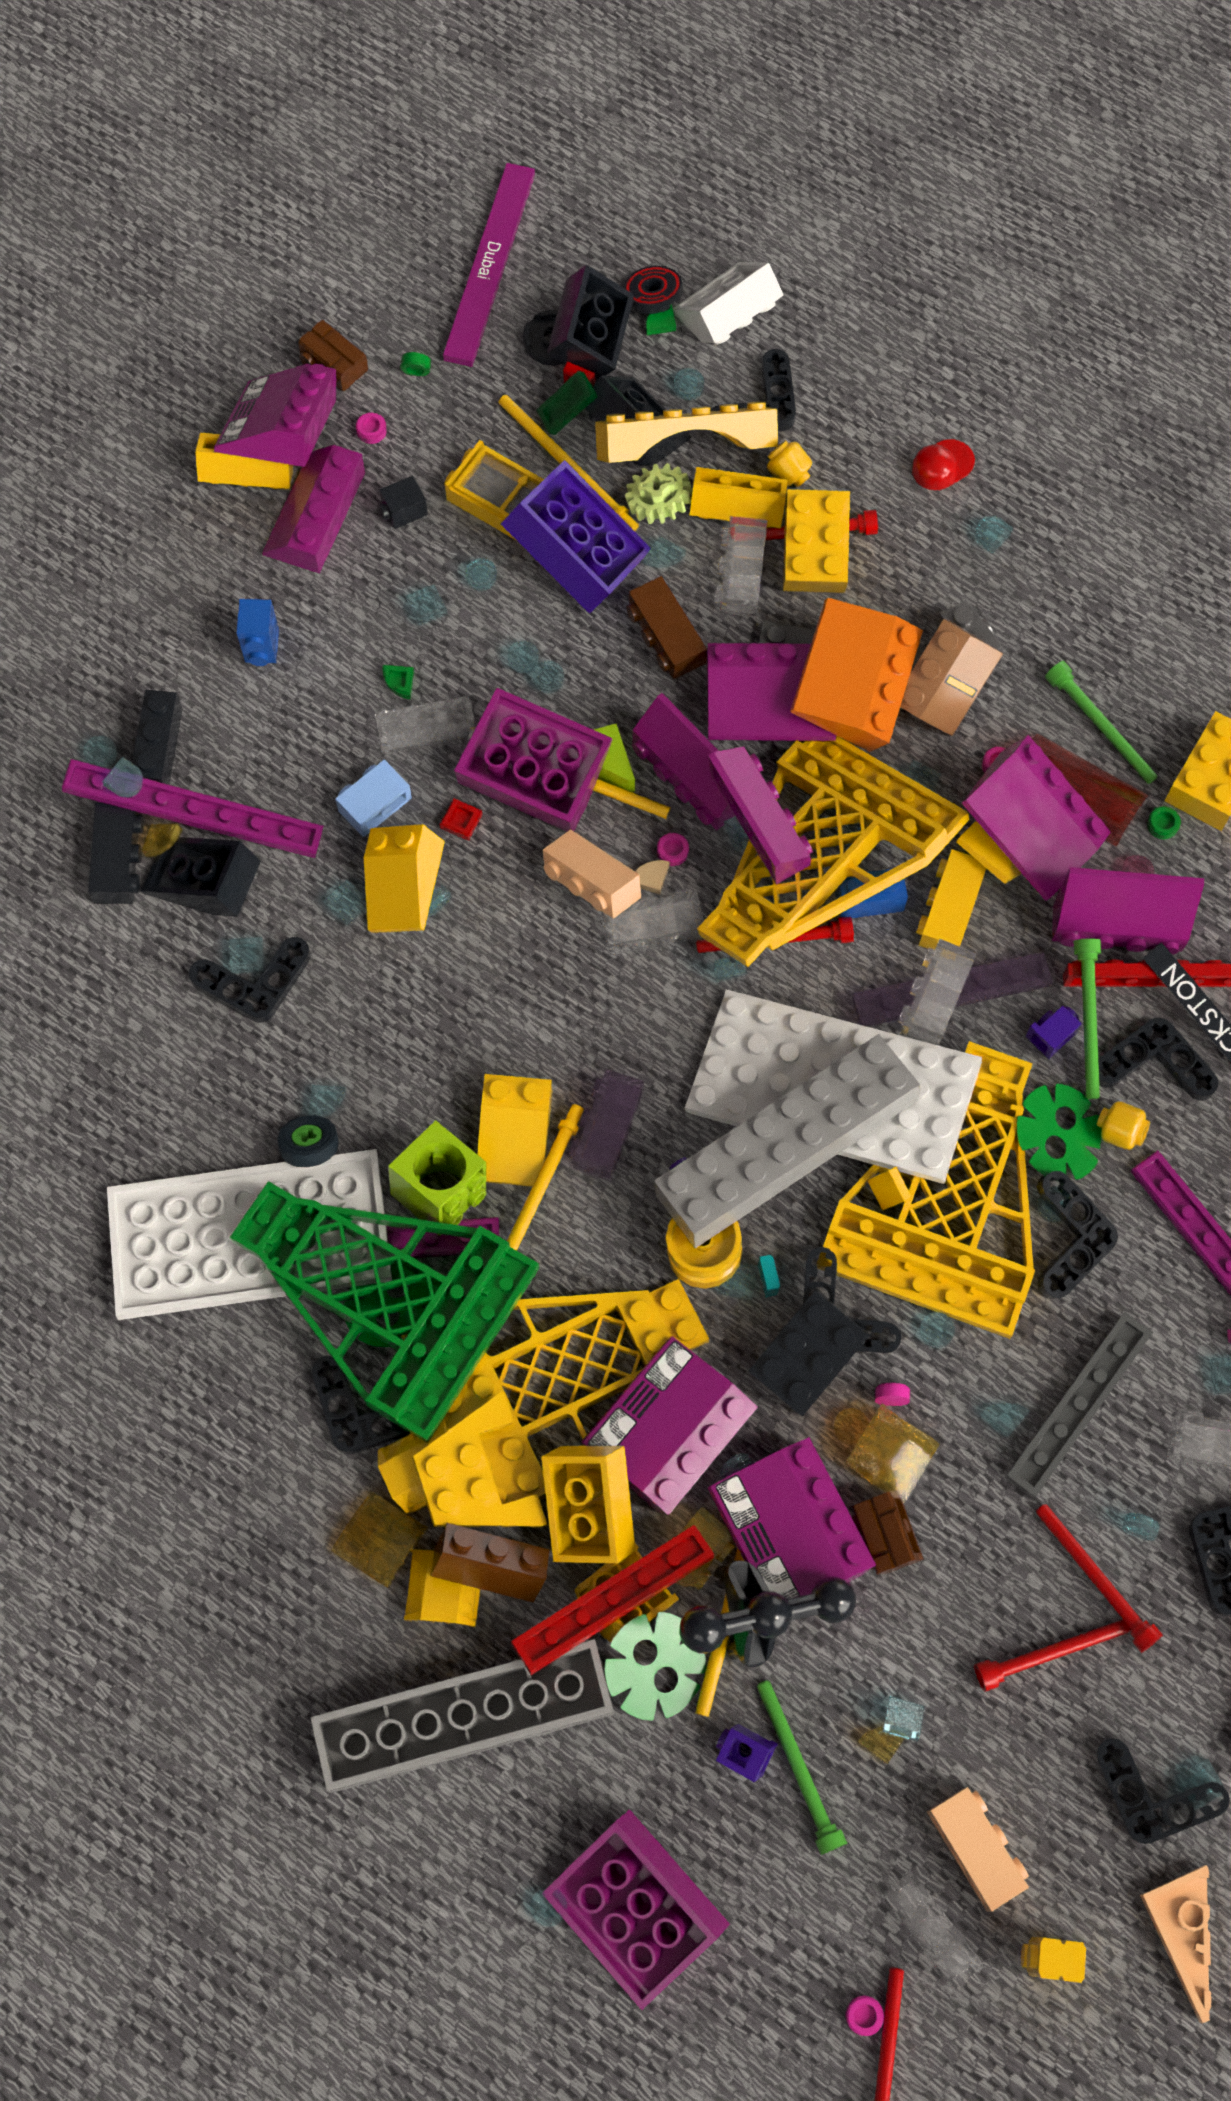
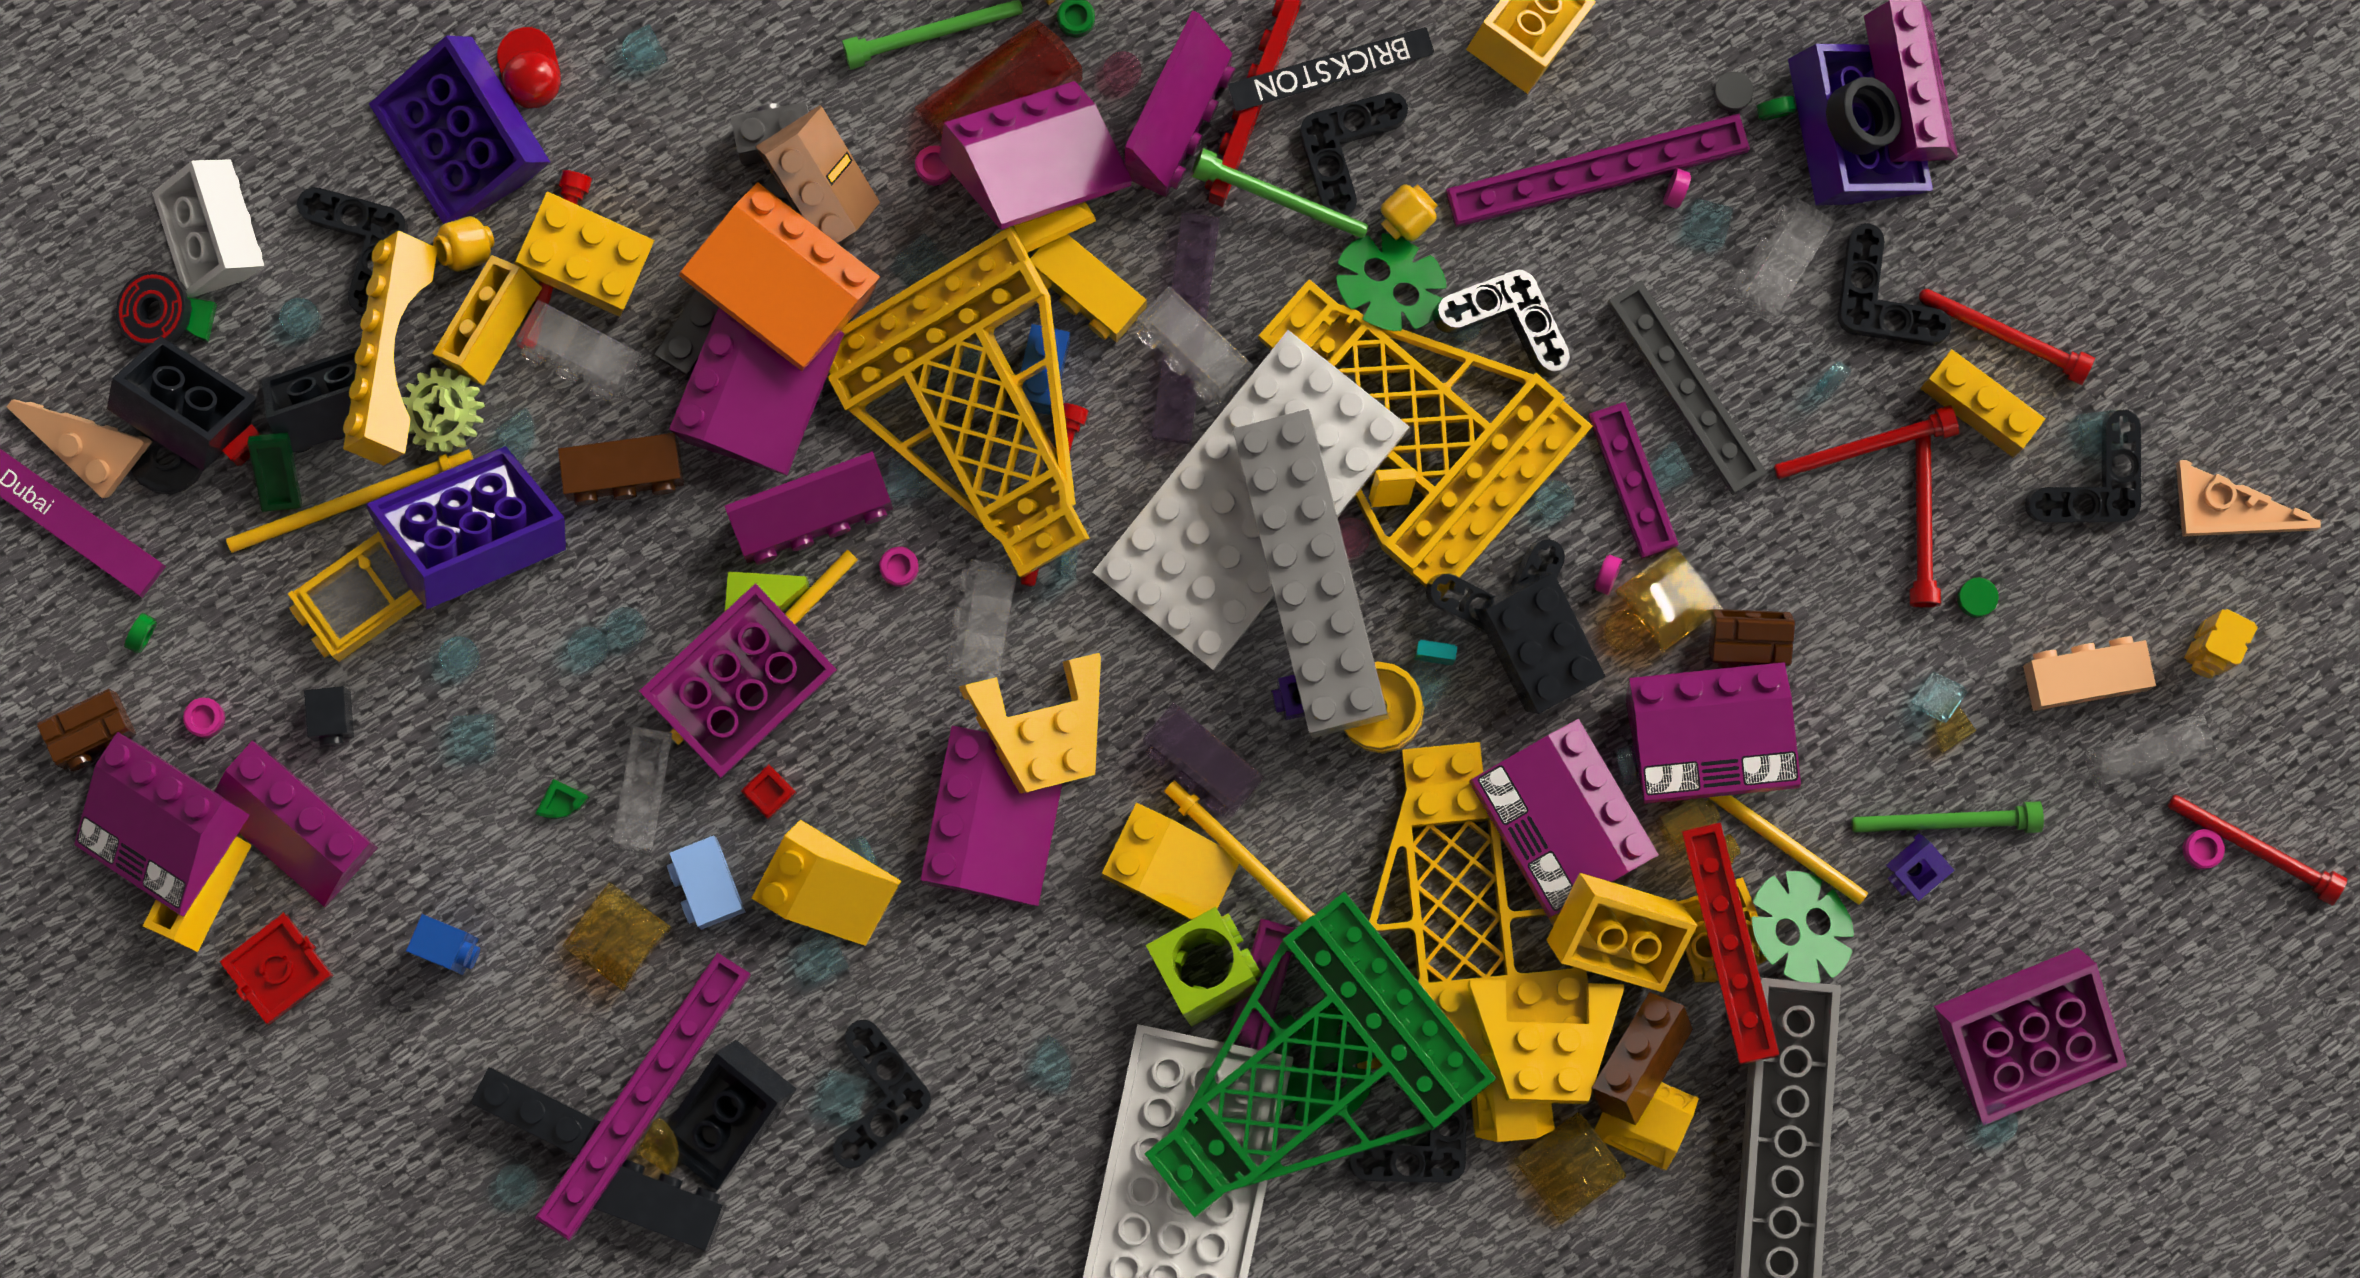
camera: 75 degrees left, 10 degrees up
(124, 779) = (586, 1162): clear light blue tile -> none
(203, 536) = (276, 968): none -> red plate
(310, 752) = (616, 936): none -> clear yellow slope
(312, 1151) = (1117, 1092): black bush -> none
(502, 984) = (983, 830): none -> magenta slope
(535, 288) = (92, 451): none -> light nougat wing
(575, 1001) = (1046, 743): none -> yellow wing
(591, 874) = (905, 669): light nougat brick -> none
(653, 875) = (923, 603): tan tile -> none
(759, 812) = (926, 453): magenta slope -> none
(759, 1614) = (1802, 801): black connector -> none
(836, 1177) = (1355, 536): none -> clear pink tile
(875, 432) = (458, 130): none -> dark purple slope
(981, 1389) = (1633, 480): none -> magenta tile
(1006, 1724) = (1977, 597): none -> green tile
(1054, 1030) = (1275, 238): dark purple brick -> none
(1178, 1665) = (1983, 403): none -> yellow brick

